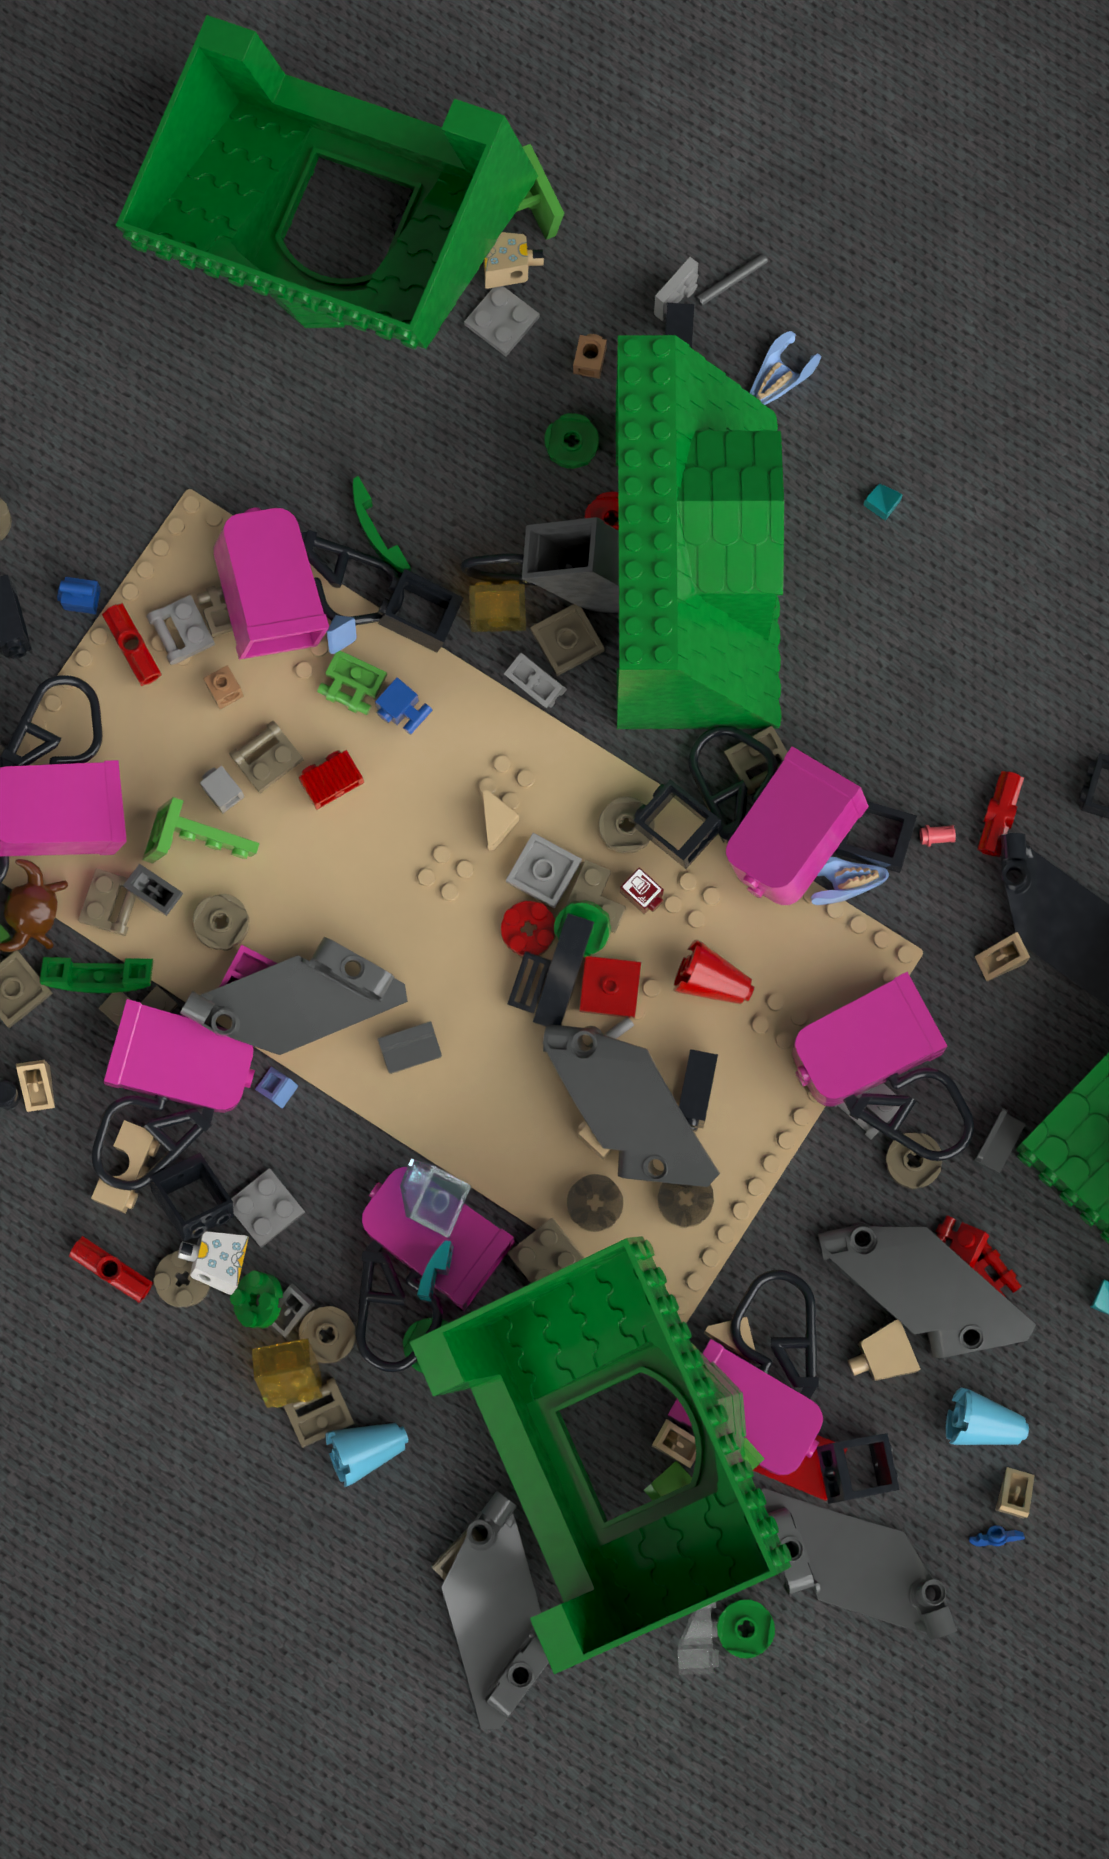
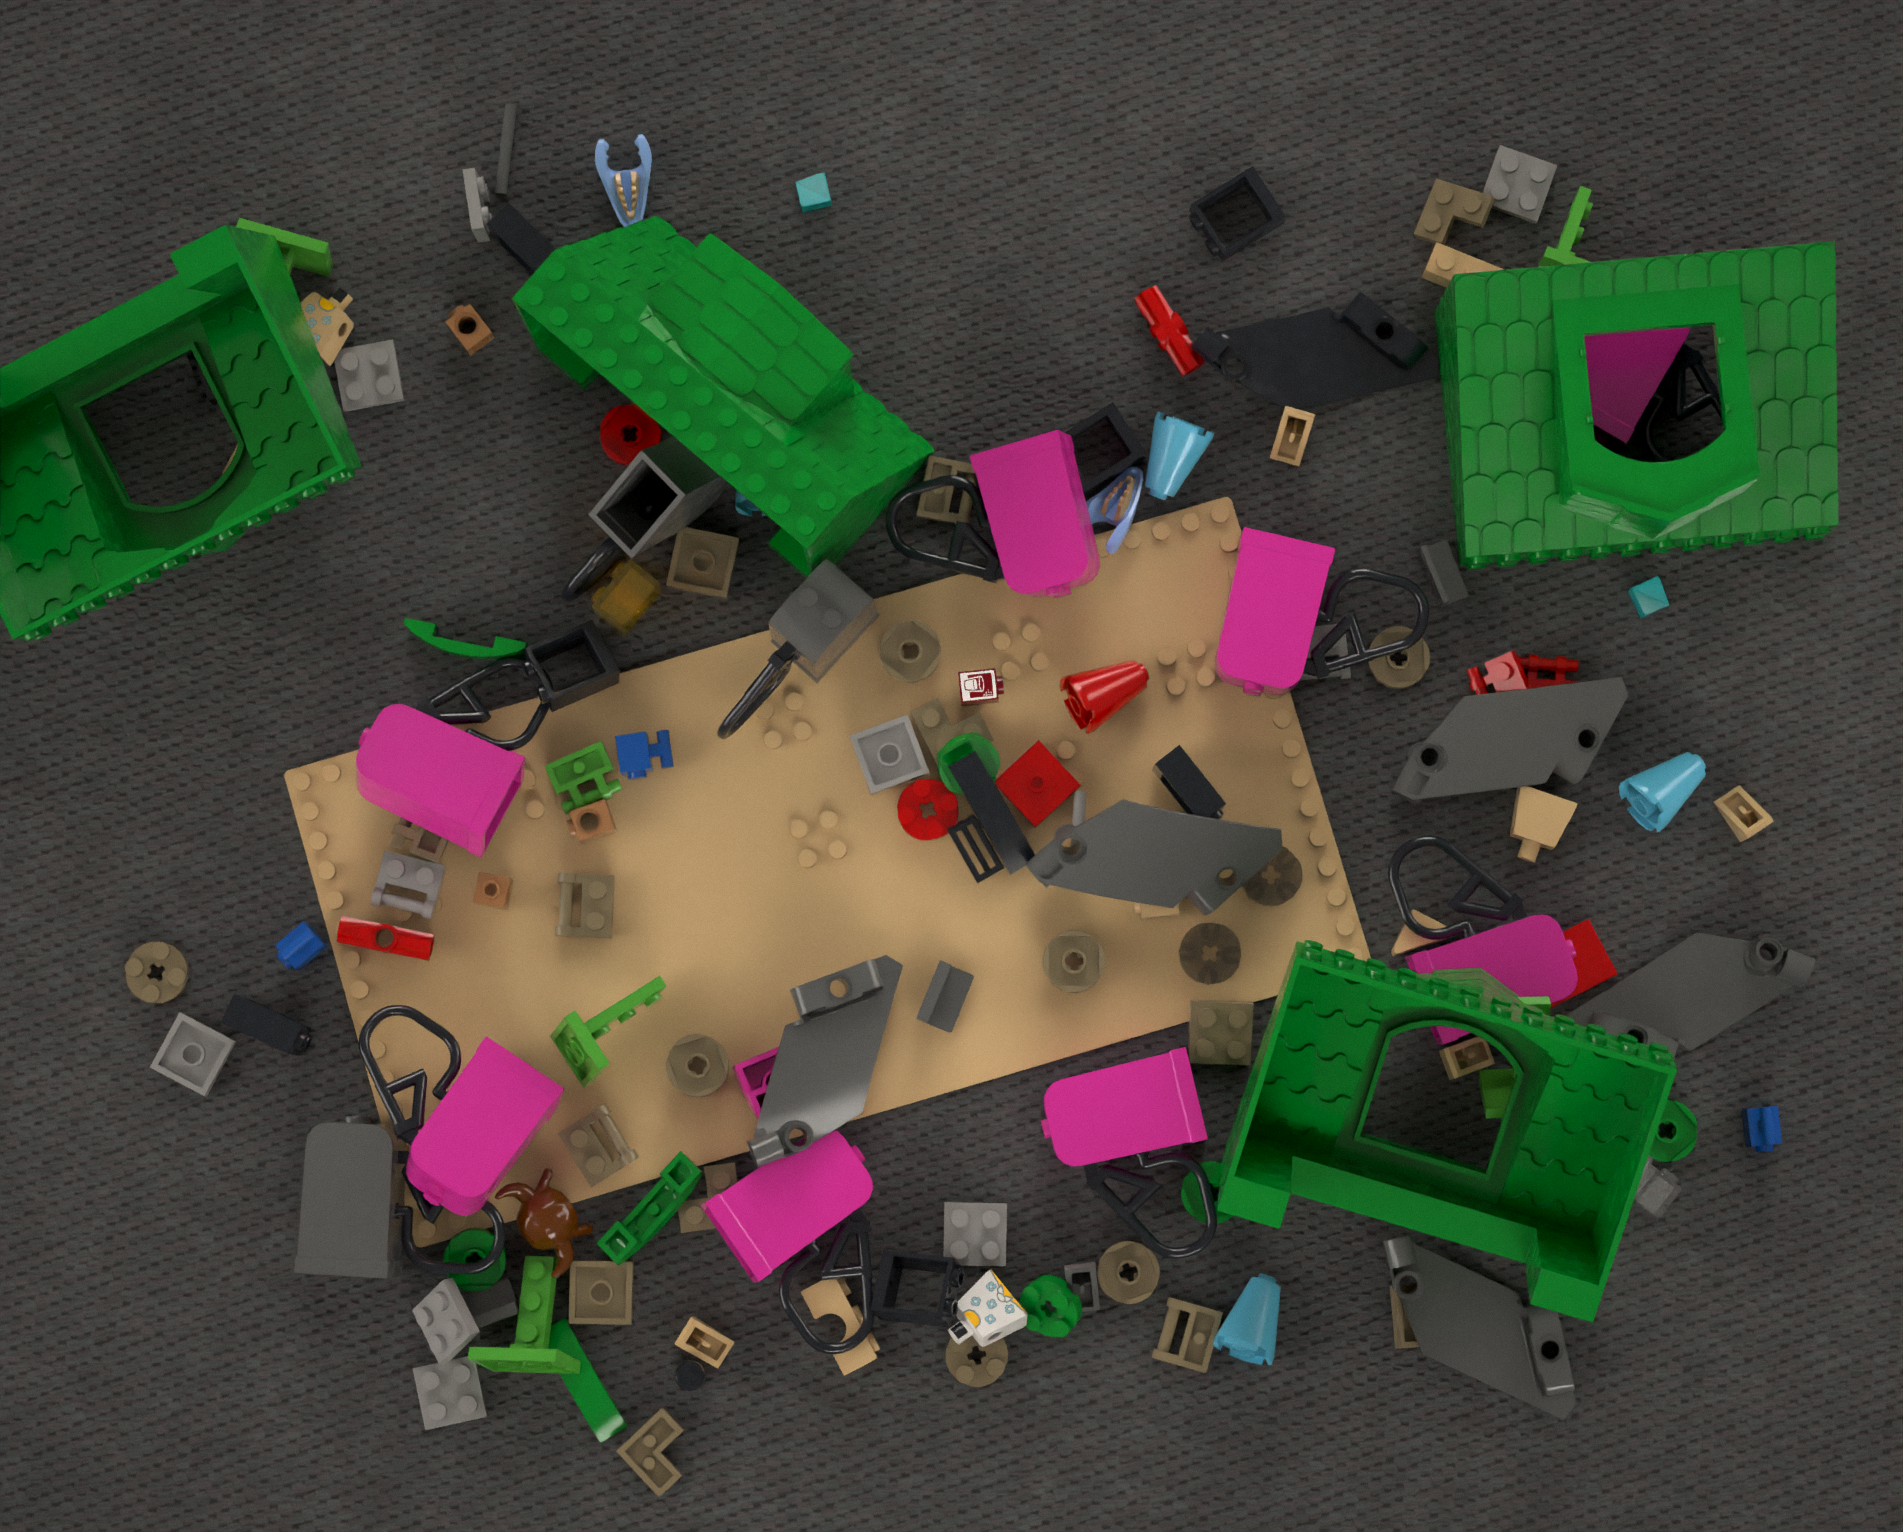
camera: 50 degrees left, 5 degrees up
(125, 1279) = (897, 1416): red piece -> none
(152, 890) = (622, 1100): dark grey slope -> none
(221, 788) = (580, 967): light grey brick -> none
(276, 1087) = (879, 1138): medium blue slope -> none
(287, 1373) = (1136, 1333): clear yellow brick -> none
(331, 779) = (653, 867): red brick -> none
(334, 721) = (605, 824): none -> medium nougat brick
(341, 633) = (534, 749): medium blue slope -> none
(432, 1197) = (1096, 1086): clear light blue slope -> none
(438, 1264) = (1160, 1127): teal slope -> none
(493, 1114) = (1086, 949): none -> dark tan plate
(499, 819) = (811, 755): tan slope -> none
(535, 681) = (716, 621): light grey hinge -> none
(583, 431) = (534, 392): green plate -> none
(588, 741) = (810, 631): none -> dark grey piece
(697, 842) = (981, 605): black window -> none
(806, 1695) = (1762, 1128): none -> blue brick
(838, 1484) = (1592, 938): black window -> none
(918, 887) = (1173, 454): none -> medium azure cone
(940, 834) = (1141, 398): coral pin -> none
(996, 1536) = (1763, 860): blue piece -> none

